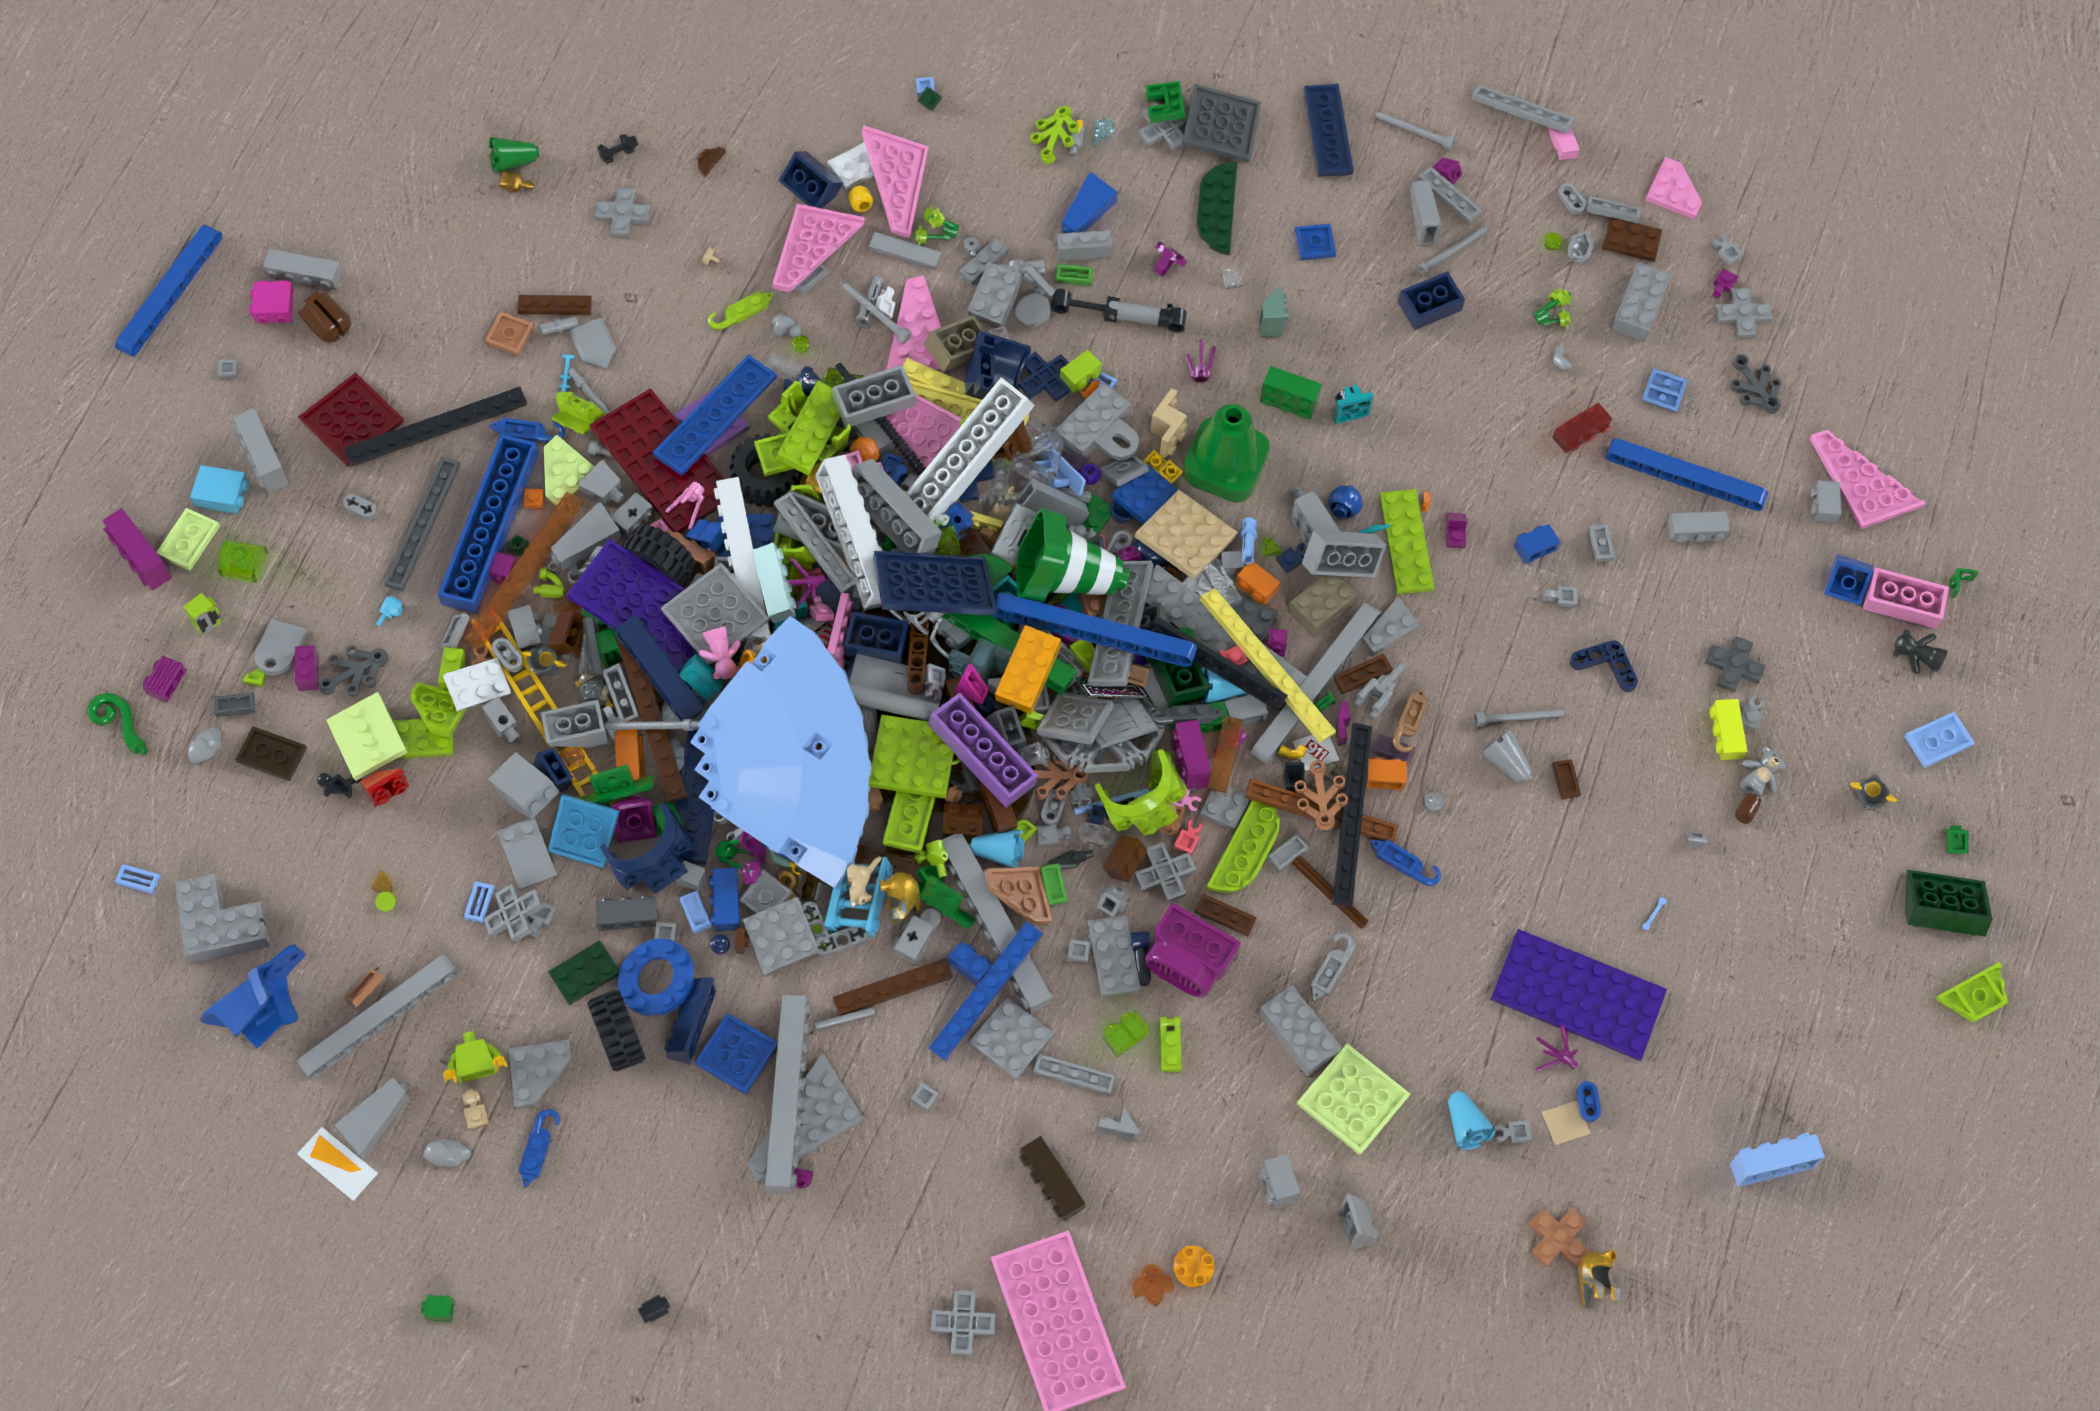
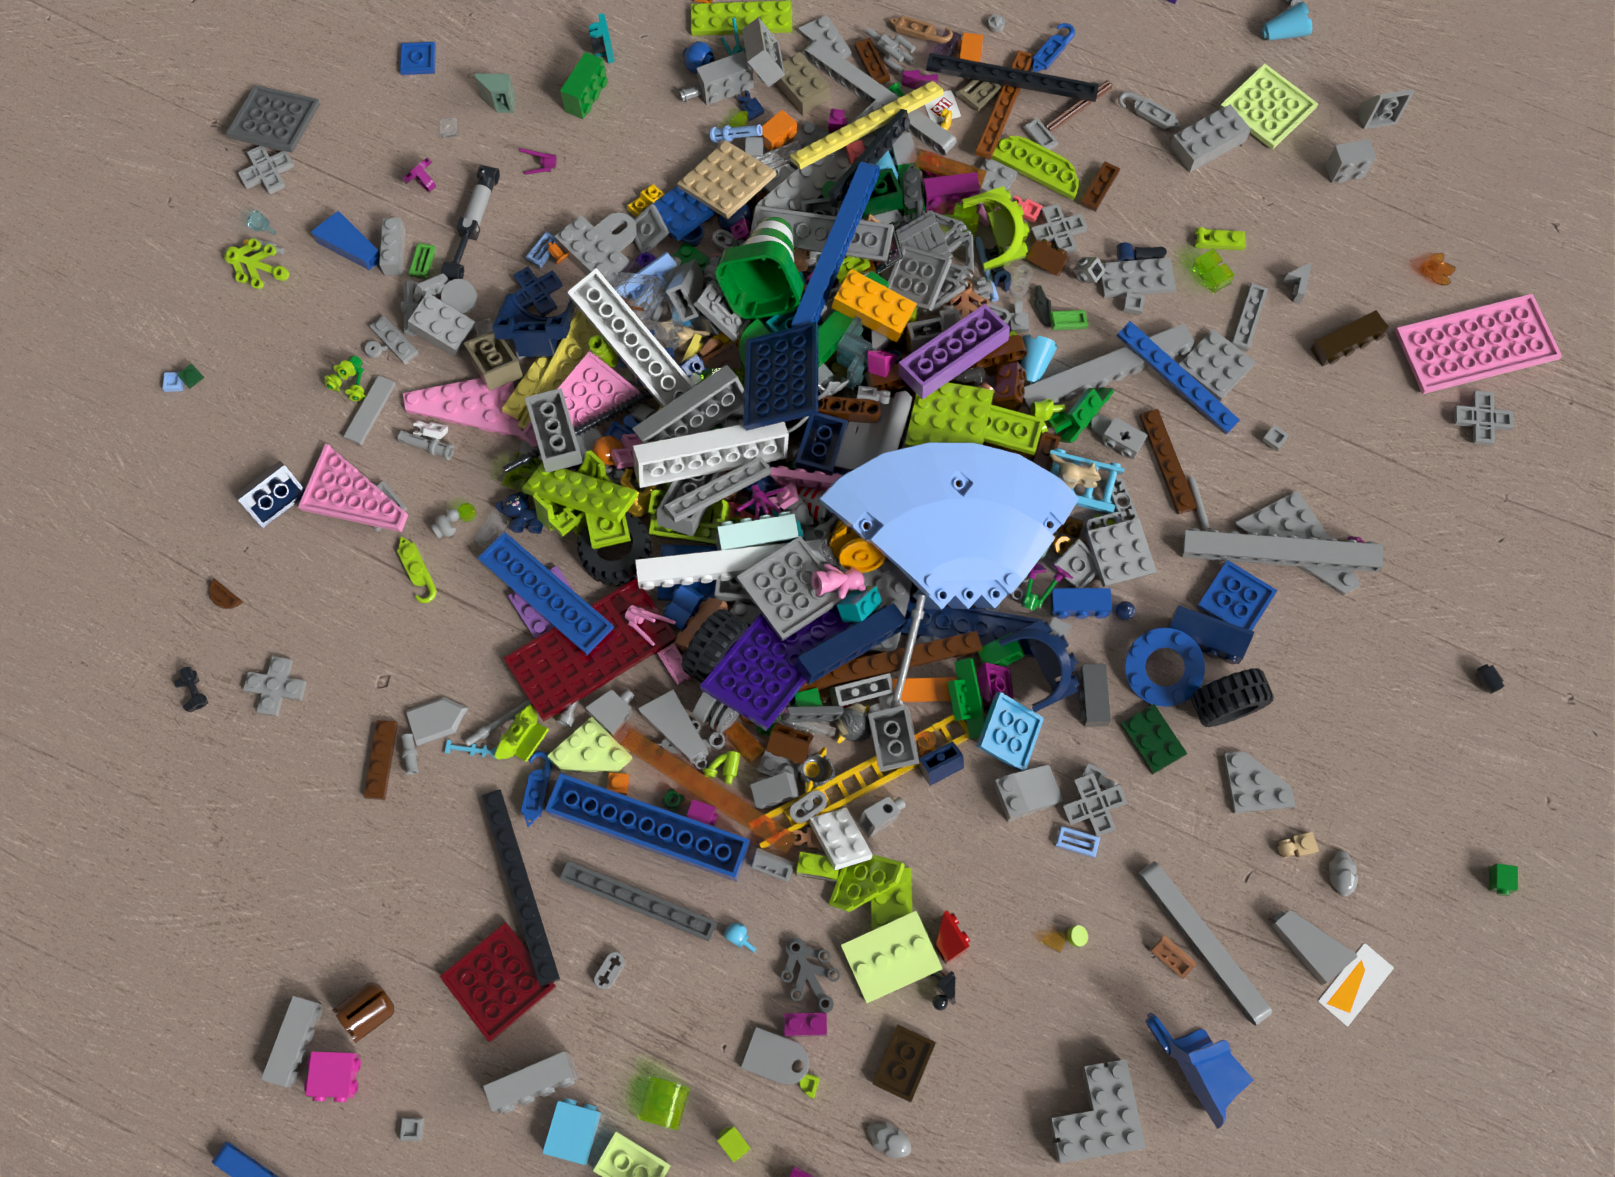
camera: 80 degrees left, 5 degrees up
(234, 704) = (842, 1106): dark grey plate -> none
(473, 1060) = (1250, 844): lime torso -> none
(509, 334) = (412, 807): nougat plate -> none
(510, 153) = (179, 804): green cone -> none
(513, 182) = (215, 801): pearl gold piece -> none
(523, 786) = (963, 788): light grey slope -> none
(536, 1148) = (1335, 786): blue plate -> none
(632, 514) = (649, 670): light grey brick -> none
(665, 931) = (1115, 660): light grey plate -> none
(695, 912) = (1090, 633): light blue tile -> none
(709, 256) = (347, 597): tan tile -> none
(742, 941) = (1124, 590): reddish brown plate -> none
(852, 166) = (256, 447): white plate -> none
(860, 198) = (302, 446): yellow head -> none
(898, 174) = (274, 407): bright pink wing -> none
(902, 334) = (472, 413): light grey piece -> none
(906, 890) = (1084, 437): pearl gold piece -> none
(969, 963) = (1149, 391): blue brick -> none
(1022, 891) = (1079, 343): nougat plate -> none
(1081, 371) = (537, 256): lime brick -> none
(1168, 424) = (605, 186): tan bracket -> none
(1173, 107) = (249, 154): green plate -> none
(1190, 952) = (1146, 205): magenta brick -> none
(1193, 1266) = (1420, 236): light orange dish -> none
(1217, 207) = (366, 134): dark green plate -> none
(1227, 455) = (644, 140): green cone -> none
(1292, 773) = (972, 122): black bracket -> none
(1321, 797) = (997, 97): nougat plant -> none
(1328, 130) = (296, 34): dark blue plate -> none

